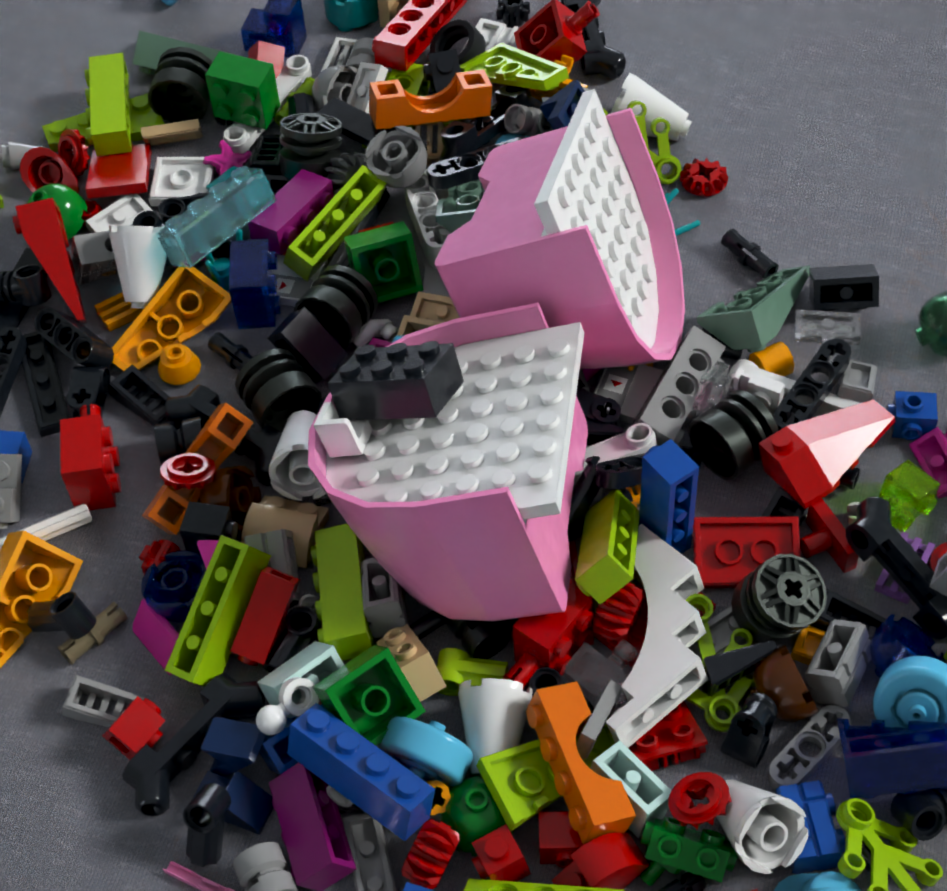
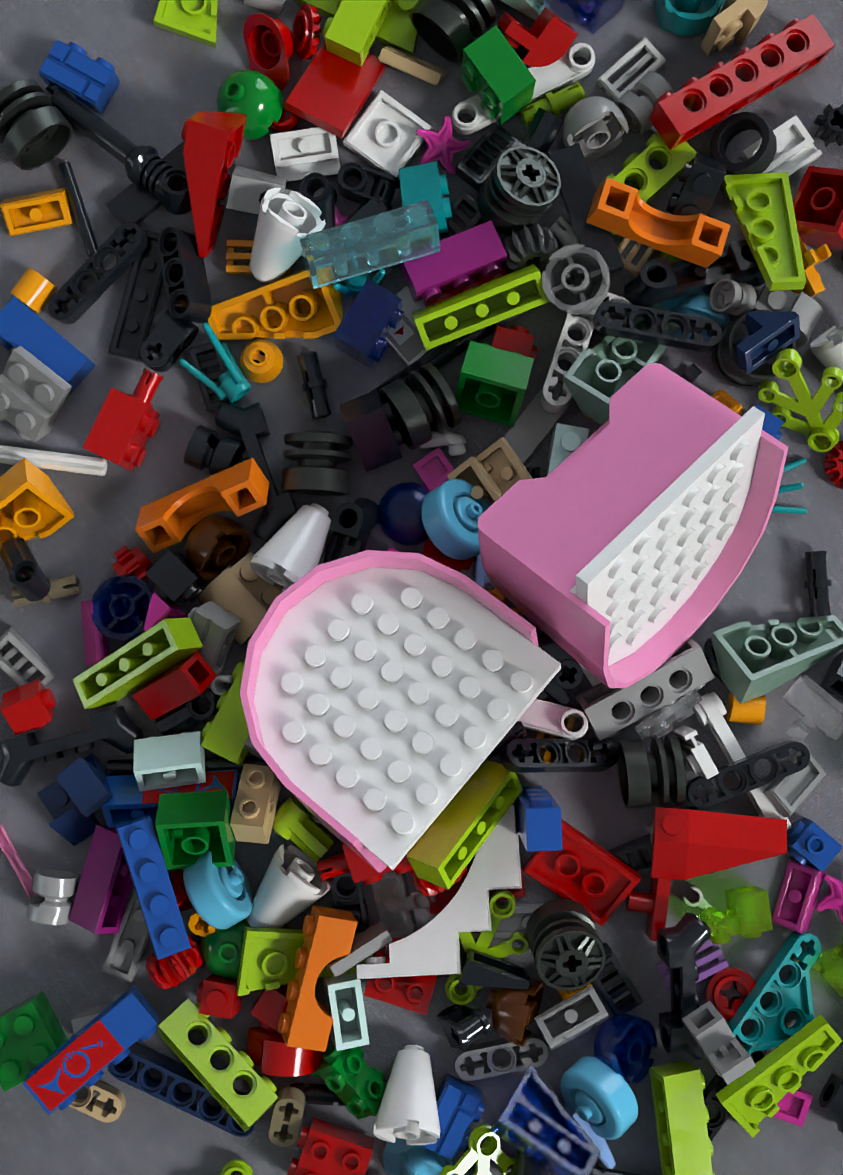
camera: 30 degrees right, 35 degrees up
(163, 383) = (233, 382): none -> teal plant
(175, 471) = (181, 501): red gear -> none
(205, 824) = (31, 831): black piece -> none
(273, 718) = (143, 792): white plate -> none
(341, 435) = (299, 623): white panel -> none
(359, 92) = (616, 149): white plate -> none
(396, 381) = (367, 617): black brick -> none
(698, 787) = (365, 1060): red gear -> none

